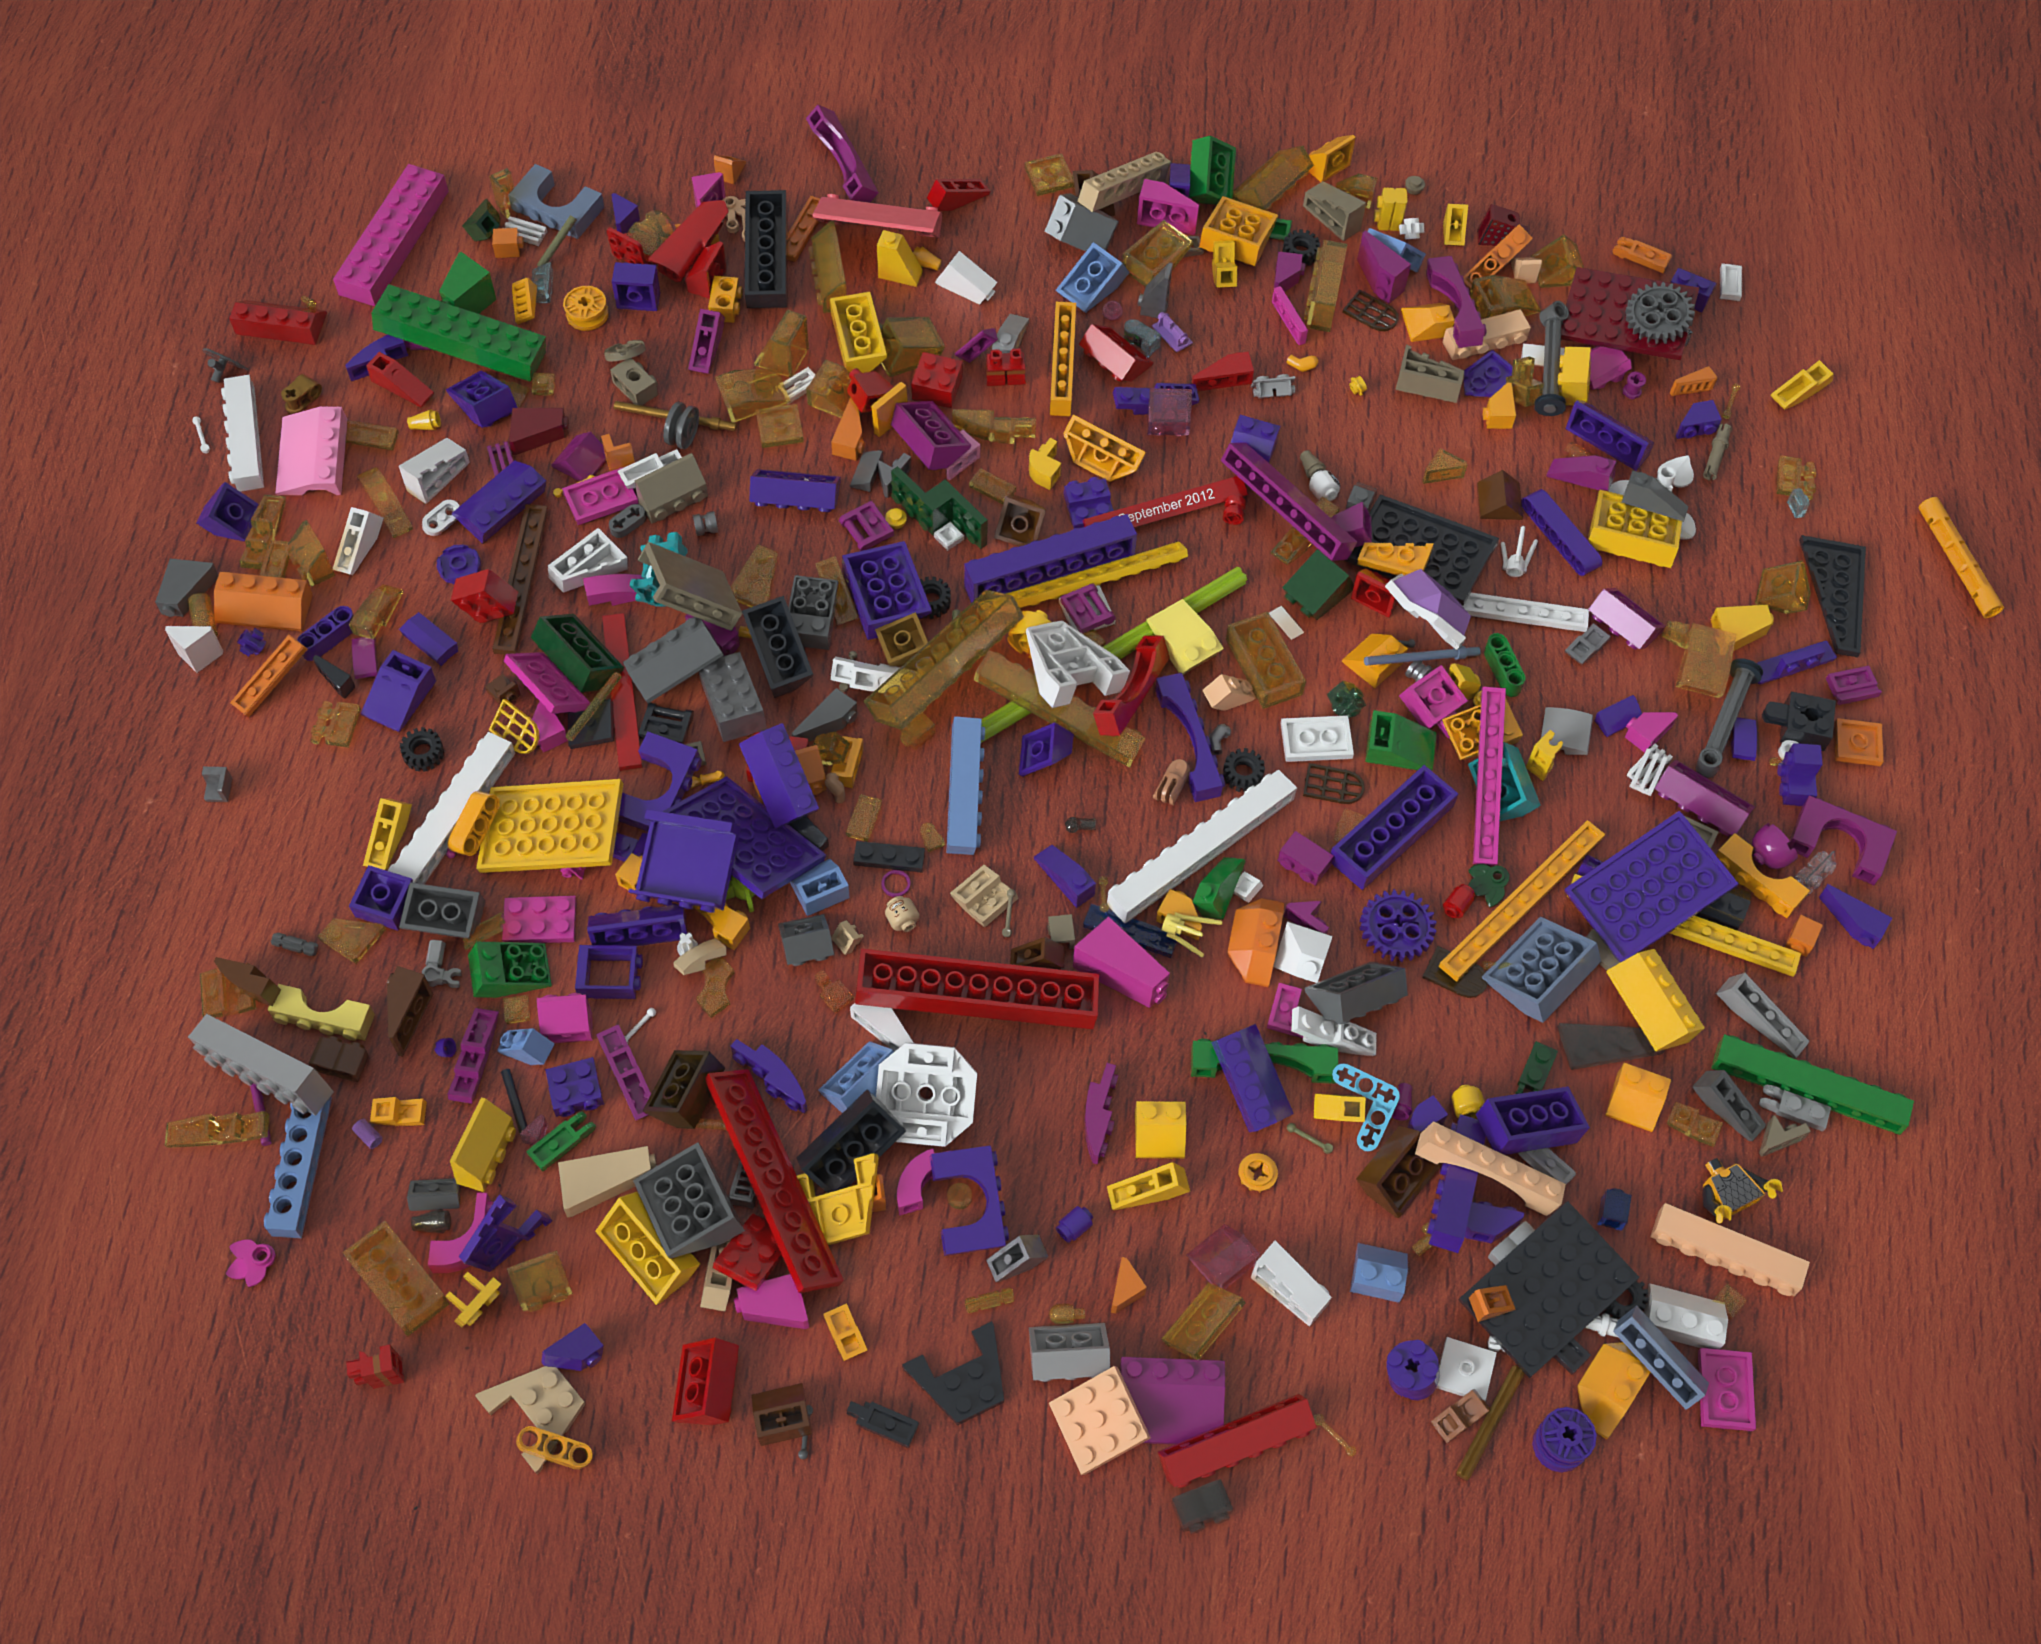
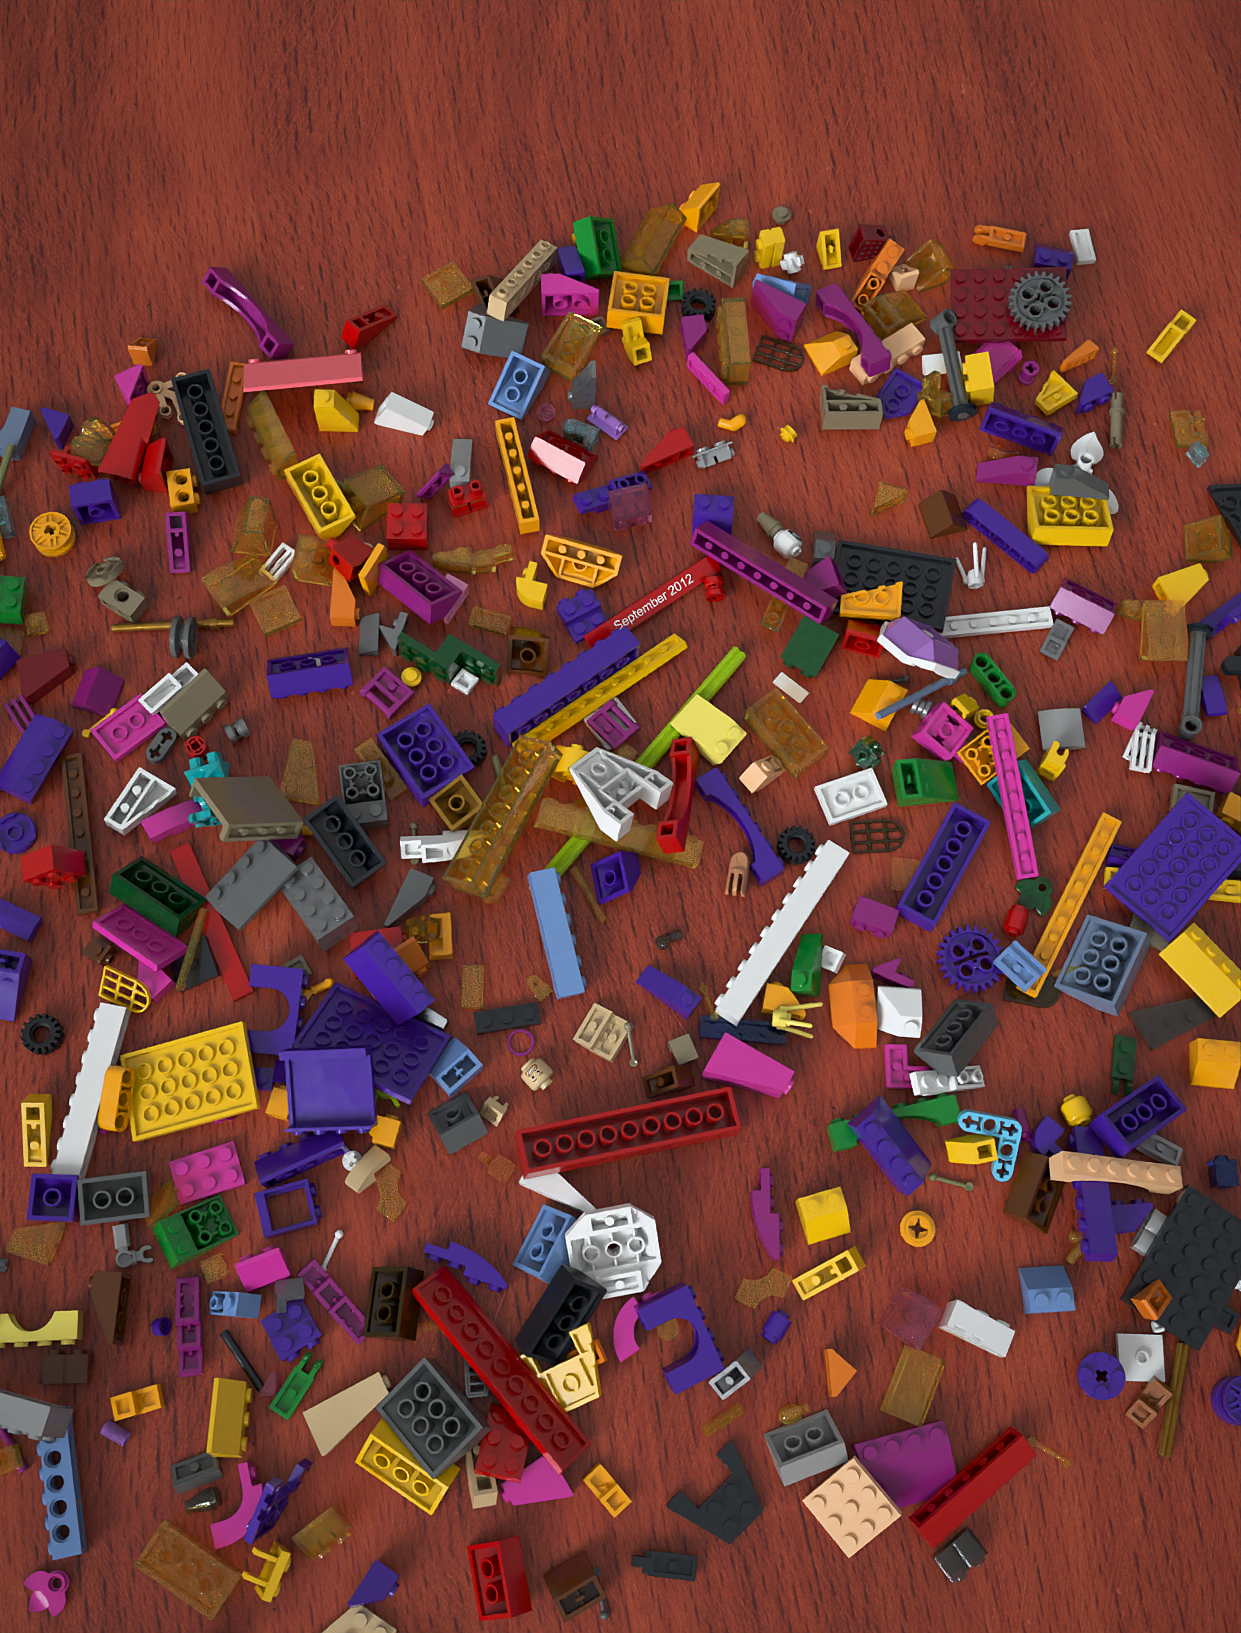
camera: 20 degrees left, 10 degrees up
(582, 1046) = (288, 1290): none -> flat silver panel
(617, 456) = (133, 687): orange panel -> none
(660, 526) = (200, 750): none -> red wheel
(664, 727) = (266, 950): black plate -> none
(836, 787) = (439, 966): medium nougat arm -> none
(1011, 763) = (588, 895): none -> clear yellow bar
(1063, 1185) = (753, 1291): none -> clear yellow tile
(1220, 732) = (762, 819): flat silver arm -> none
(1447, 941) = (1019, 966): none -> medium blue plate
(1657, 412) = (1055, 394): none -> yellow wing

